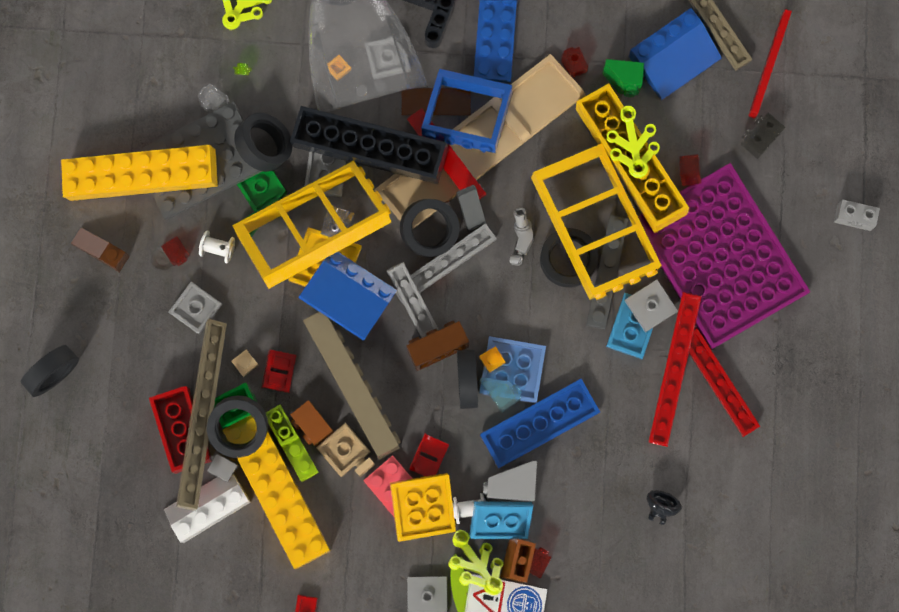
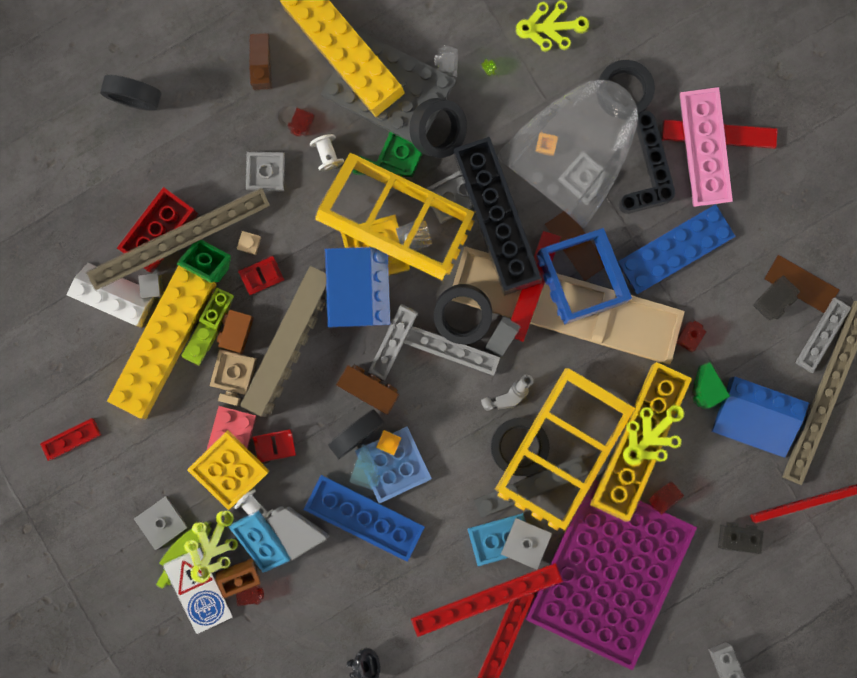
camera: 60 degrees right, 5 degrees up
(226, 447) = (164, 280): black tyre -> none

